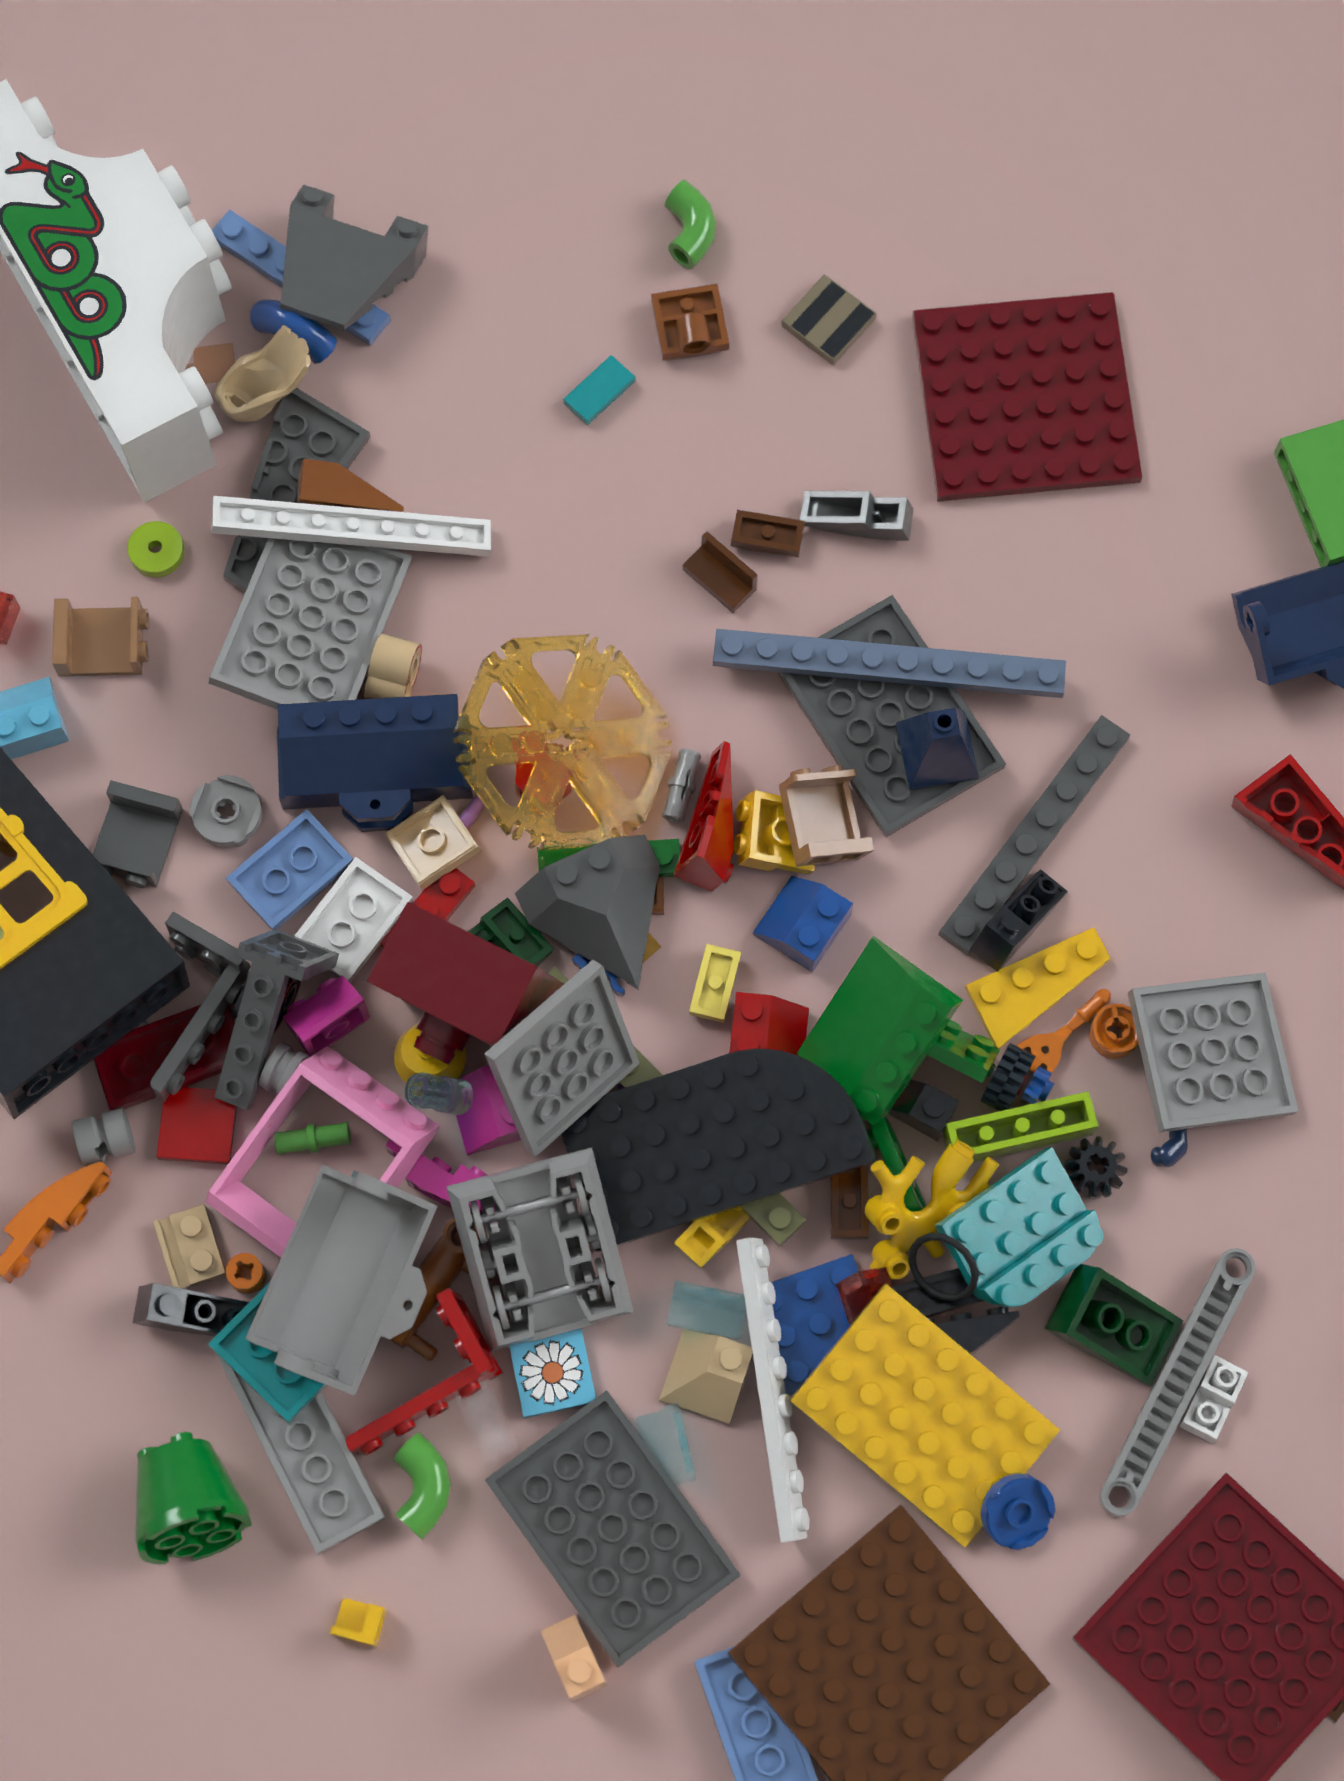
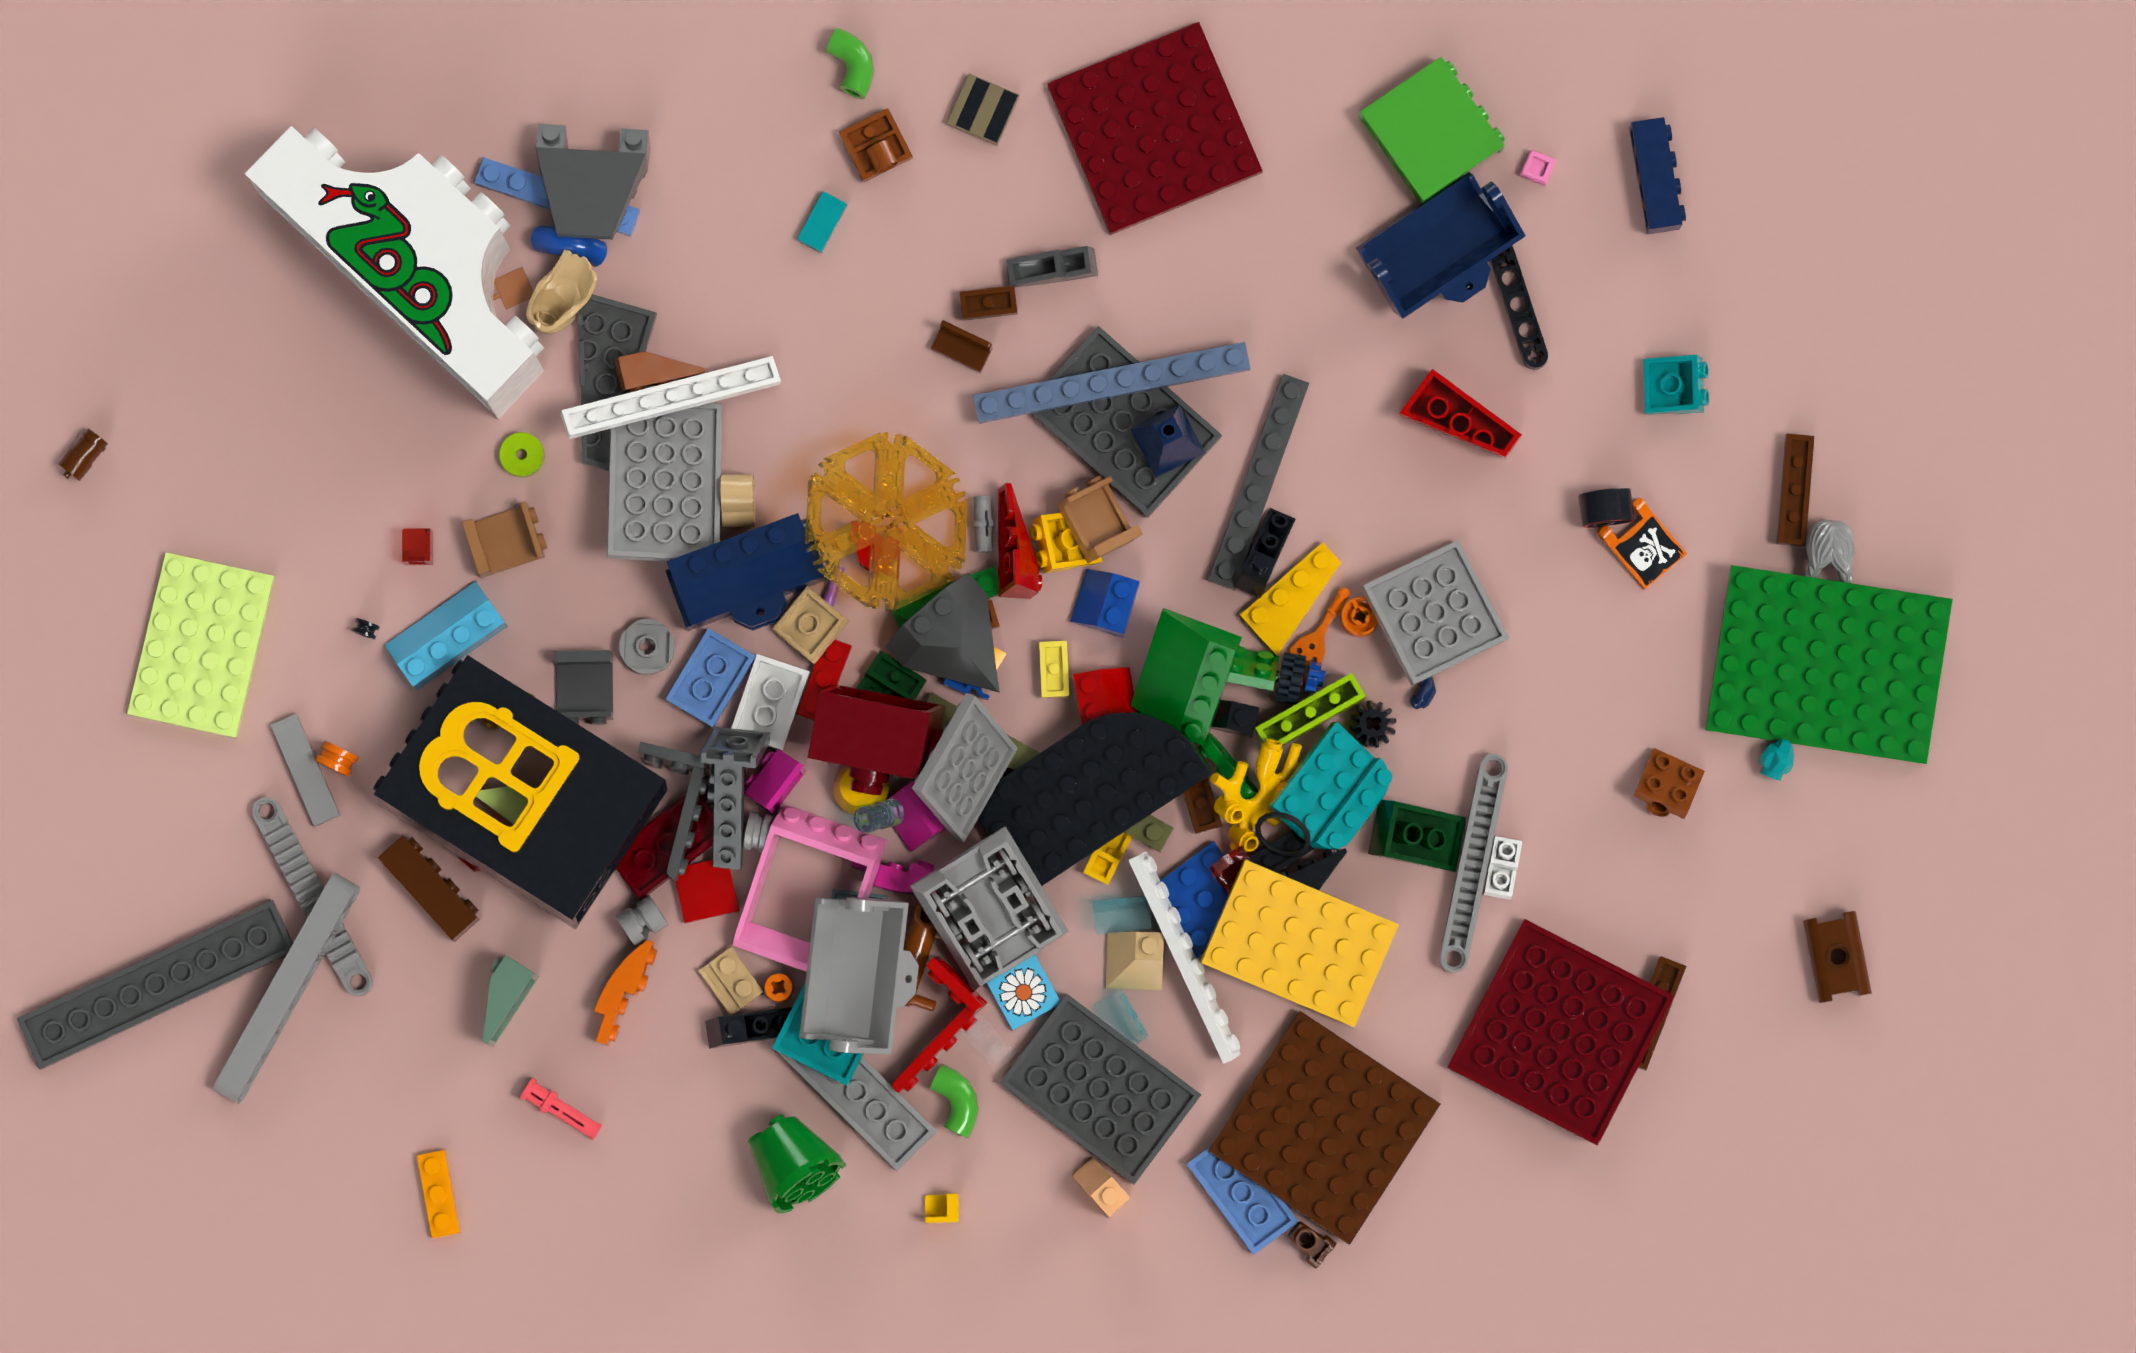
camera: 15 degrees left, 10 degrees up
(313, 1138) = (794, 874): bright green pin -> none
(1017, 1511) = (1384, 990): blue tile -> none

